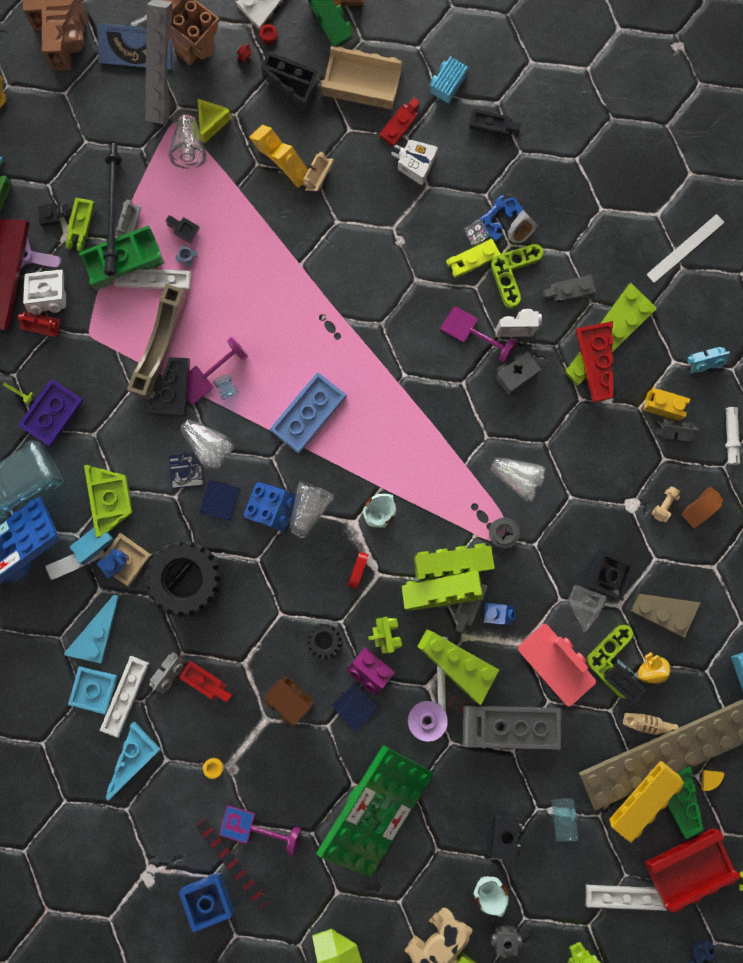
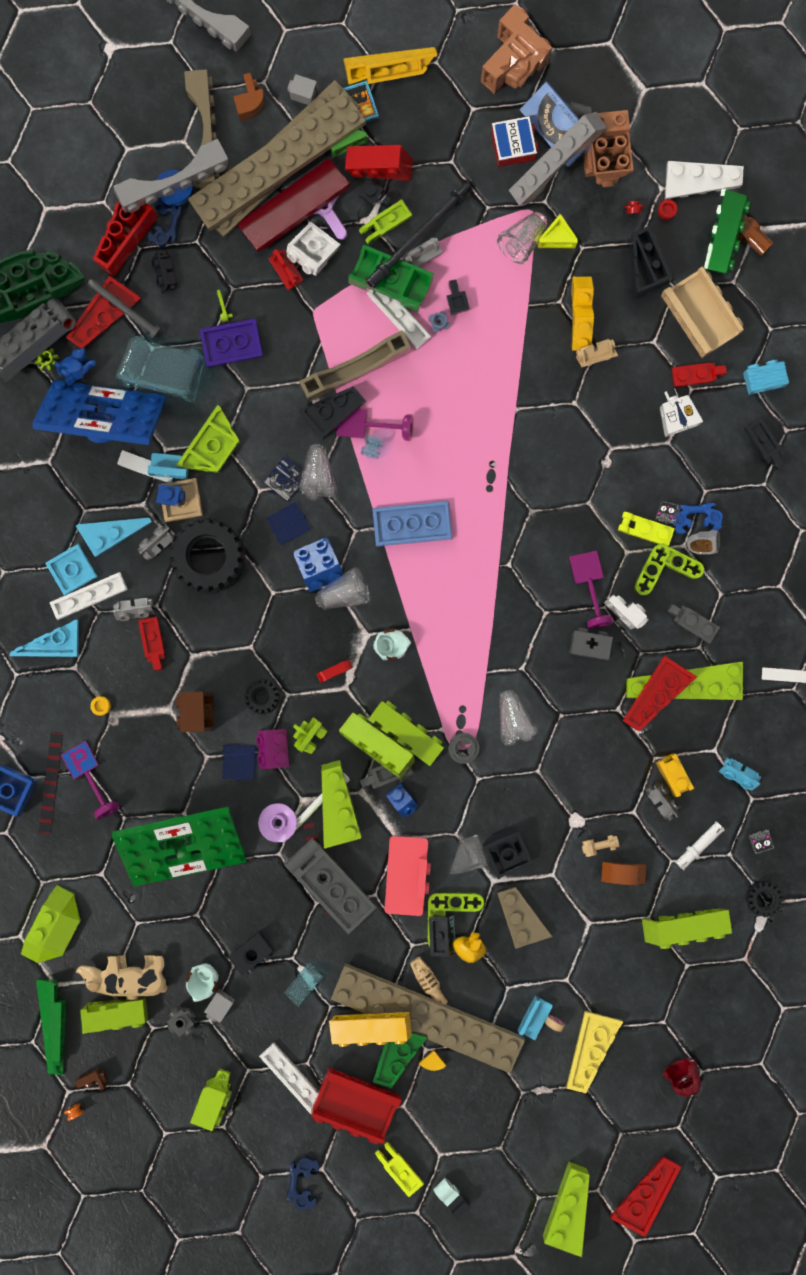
camera: 55 degrees right, 5 degrees up
(33, 187) = (379, 162): none -> red wedge
(116, 86) = (514, 141): none -> piece
(135, 600) = (160, 536): none -> light grey hinge
(521, 901) = (219, 1006): none -> light grey brick

